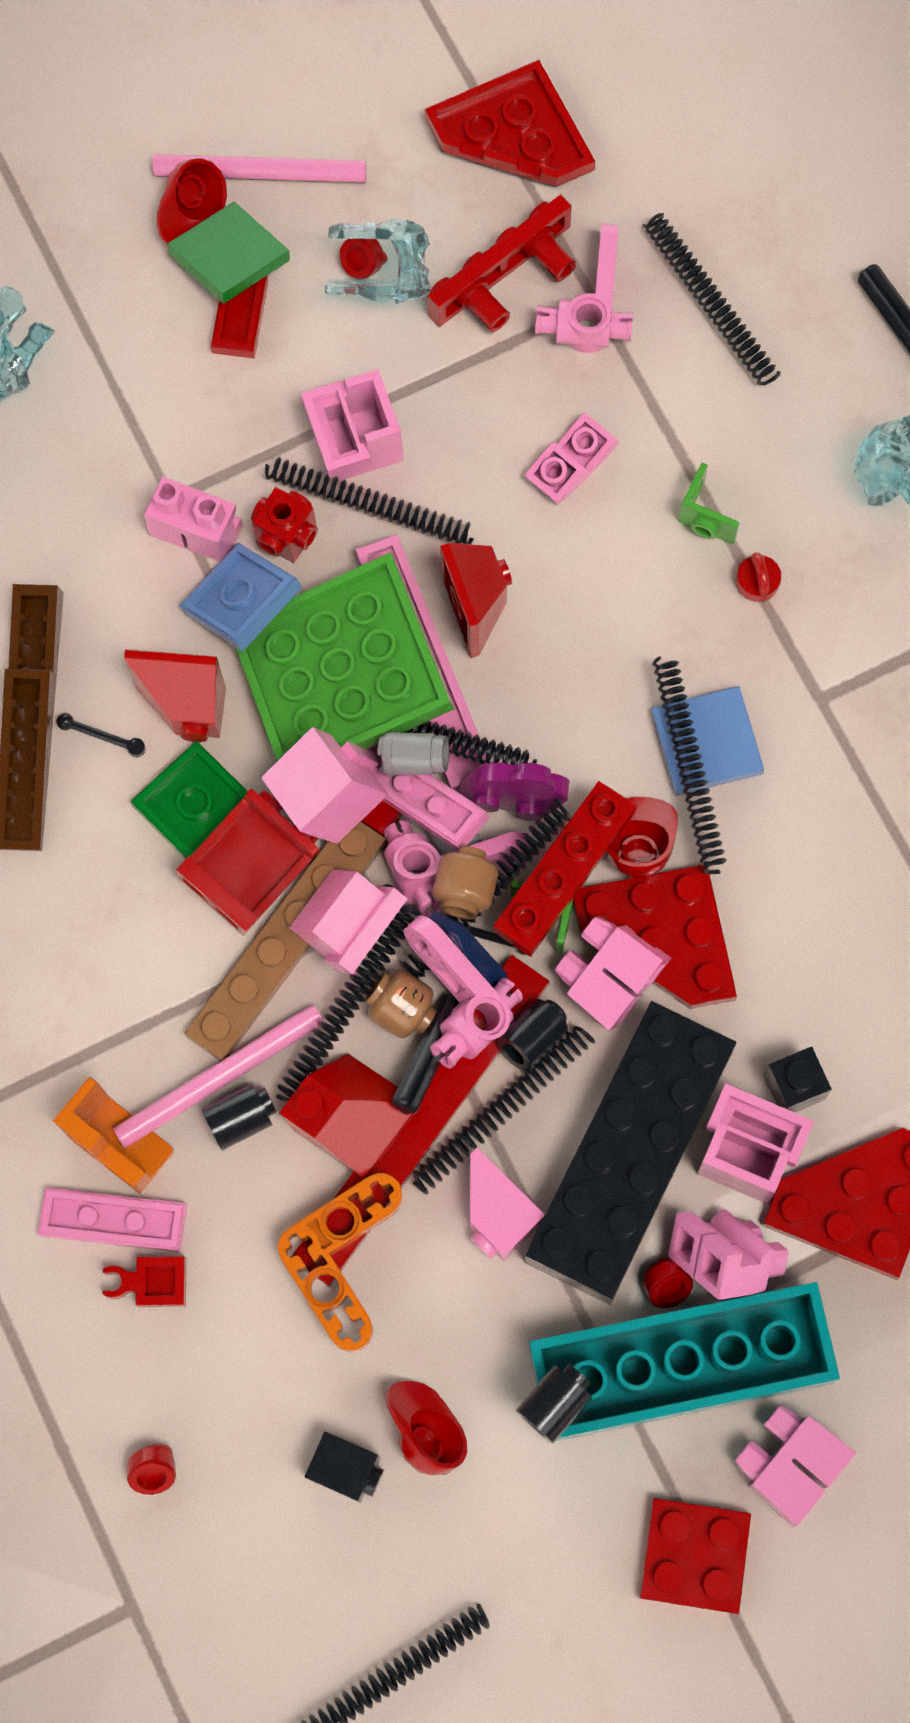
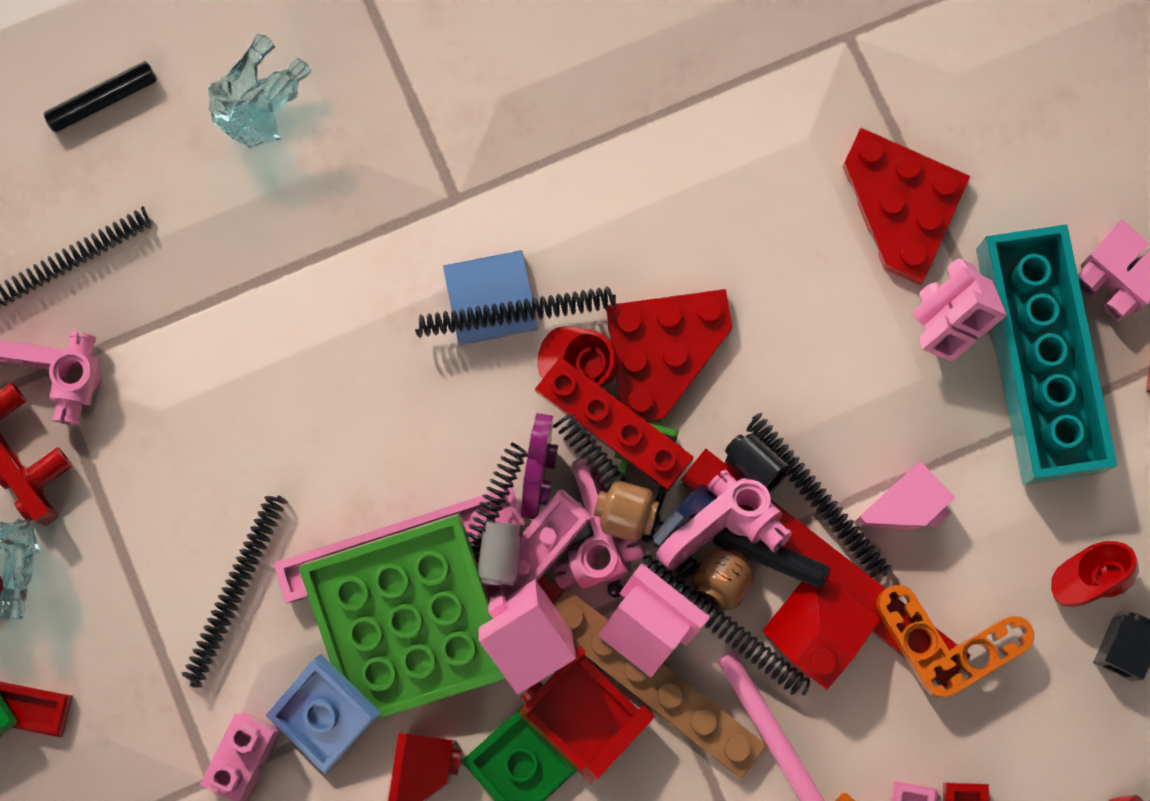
camera: 90 degrees left, 5 degrees up
(239, 1115) = (819, 729): black brick -> none
(286, 536) = (268, 674): red brick -> none
(354, 425) = (160, 598): bright pink plate -> none
(476, 590) = (337, 492): red slope -> none
(555, 1401) = (1093, 456): black brick -> none
(572, 459) = (208, 400): bright pink slope -> none
(615, 976) = (708, 388): bright pink hips -> none
(630, 1153) = (864, 387): black brick -> none
(667, 1283) = (974, 365): red tile -> none
(703, 520) = (283, 285): bright green bracket -> none
(752, 1143) = (861, 283): bright pink plate -> none
(758, 578) = (340, 242): red tile -> none
(797, 1080) = (805, 243): black brick -> none

